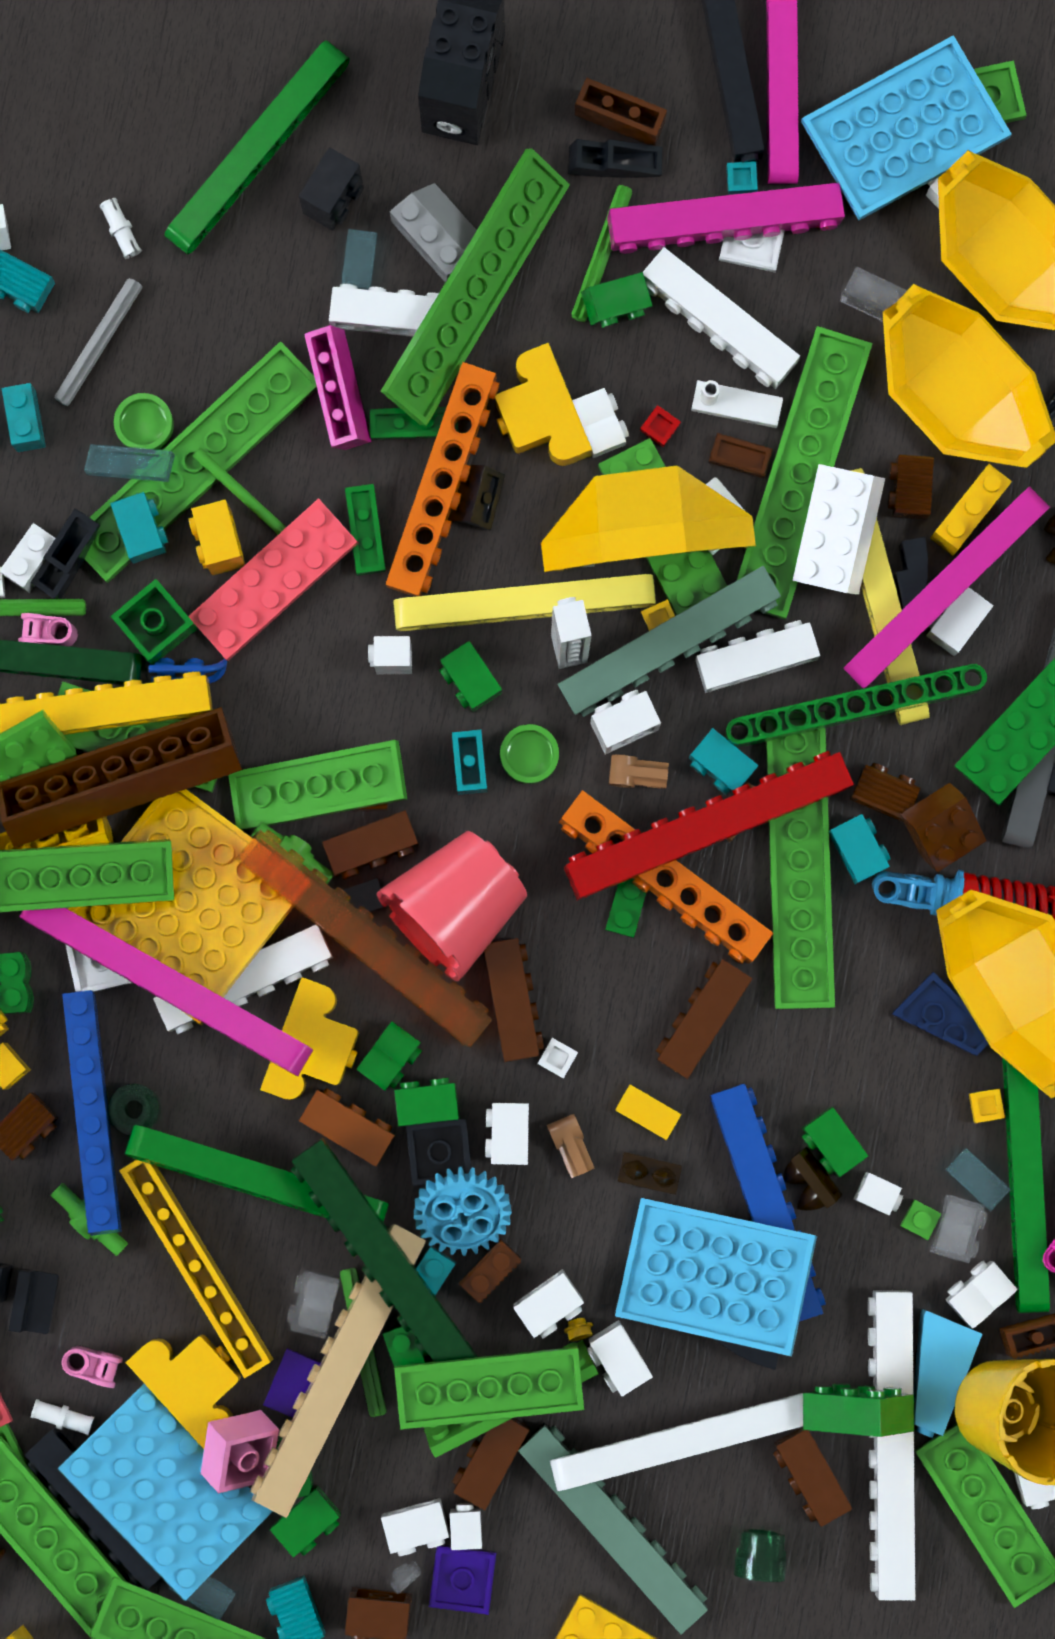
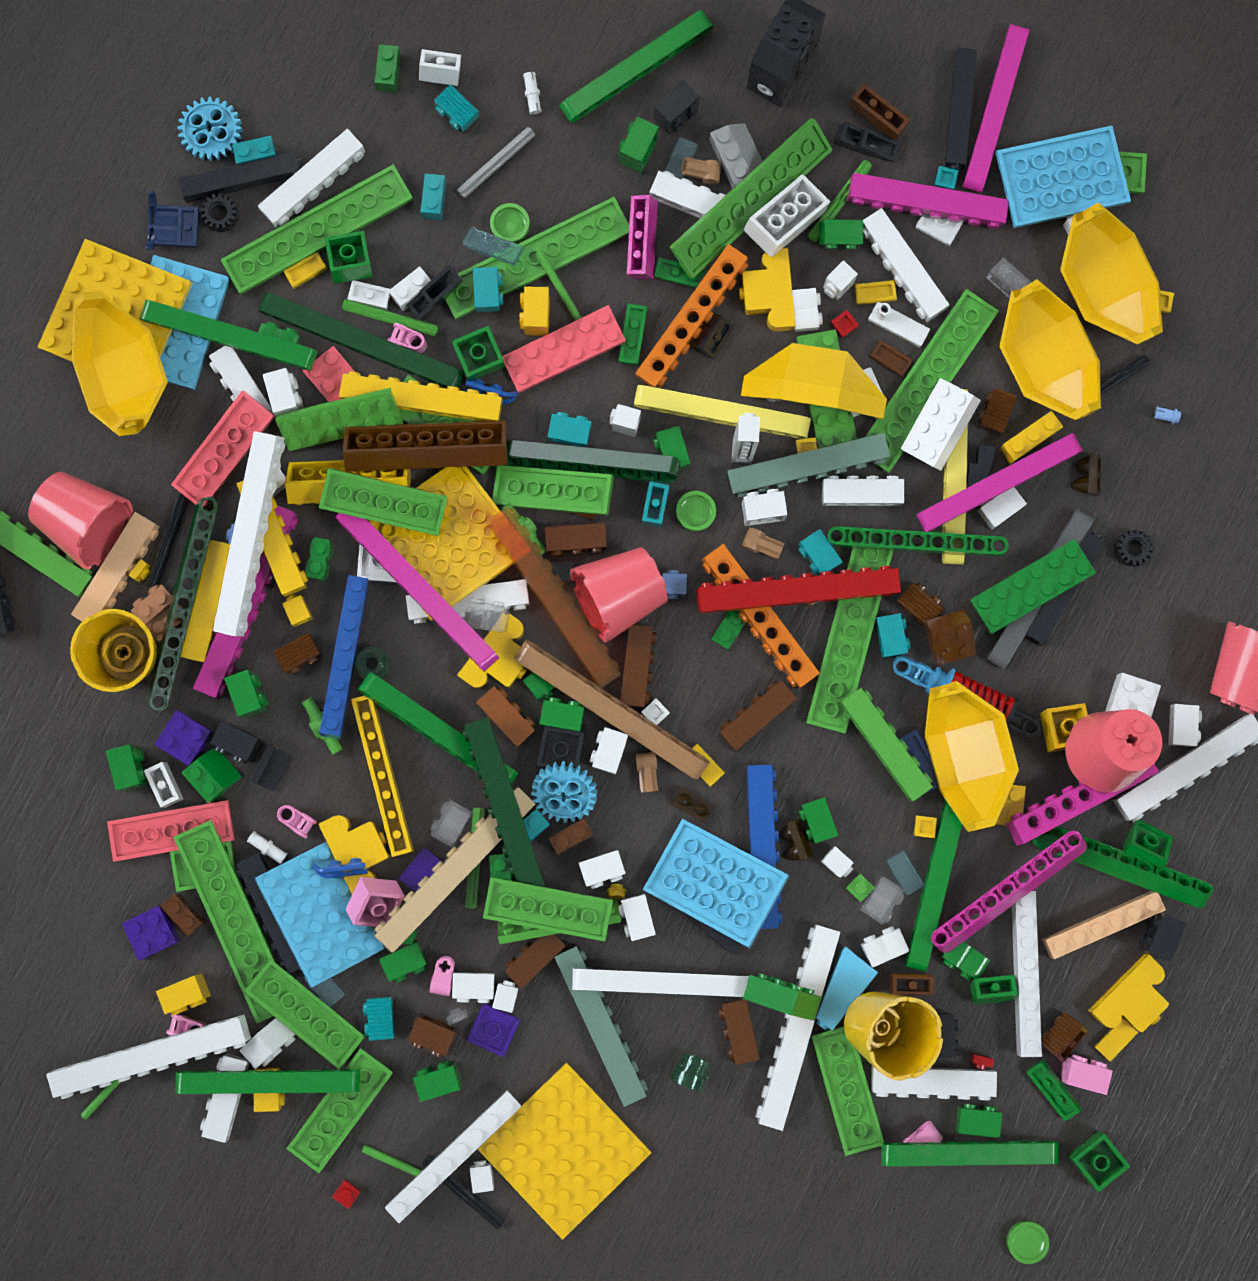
camera: 15 degrees right, 0 degrees up
(171, 1421) = (336, 869): none -> blue piece
(277, 993) = (487, 616): none -> clear brick
(292, 257) = (638, 145): none -> green brick
(316, 692) = (569, 430): none -> teal brick
(363, 727) = (591, 460): none -> beam
(367, 1529) = (442, 979): none -> bright pink piece
(401, 267) = (706, 170): none -> medium nougat piece
(494, 1073) = (611, 709): none -> medium nougat beam
(531, 867) = (675, 584): none -> medium blue brick
(533, 297) = (786, 215): none -> white brick
(635, 367) = (839, 281): none -> white brick
(690, 367) = (875, 292): none -> yellow tile
(897, 1006) = (886, 745): none -> bright green brick

